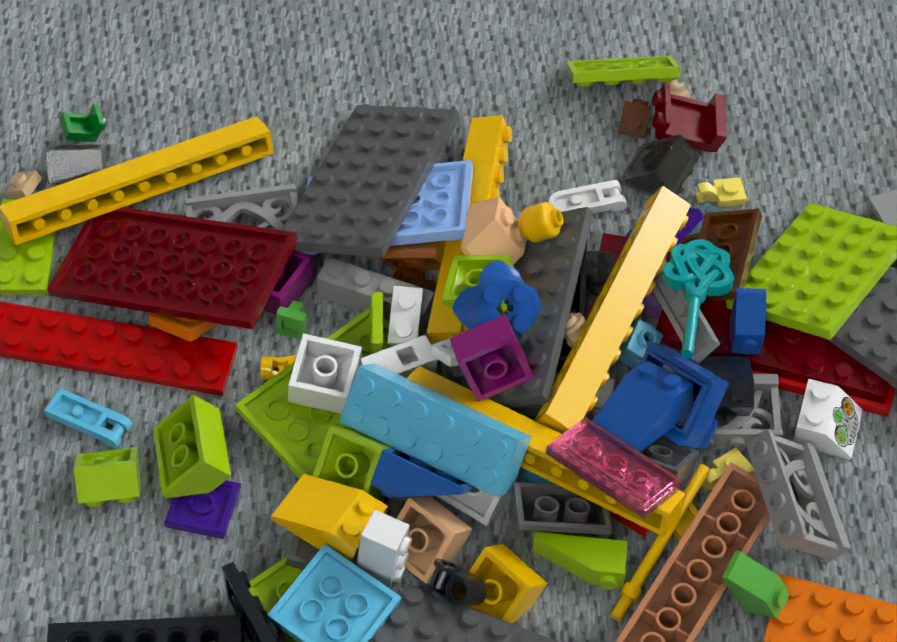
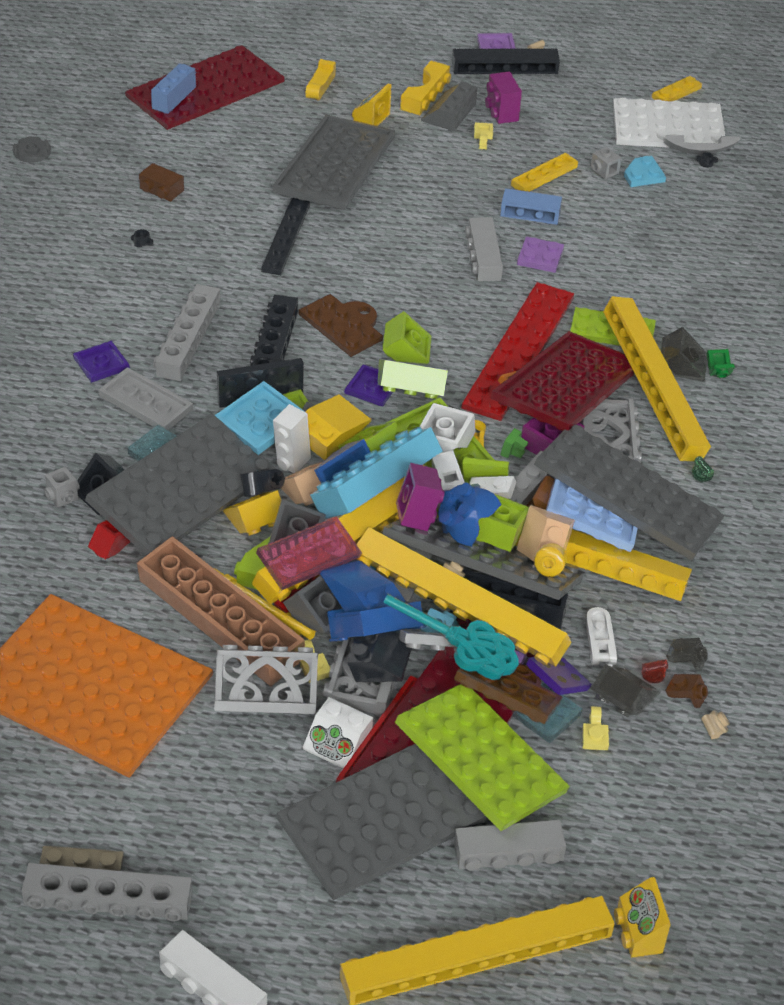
camera: 100 degrees right, 10 degrees down
(22, 184) = (664, 327): tan plate -> none
(73, 567) = (344, 323): none -> reddish brown plate
(88, 417) = (456, 339): medium azure plate -> none
(287, 130) = (702, 470): none -> clear green plate
(584, 122) = (688, 651): none -> clear smoke bracket
(620, 69) = (740, 685): lime plate -> none
(620, 149) = (654, 671): none -> clear red plate
(698, 122) = (677, 716): dark red panel -> none
(748, 321) = (428, 678): blue slope -> none
(755, 586) = (198, 635): bright green slope -> none

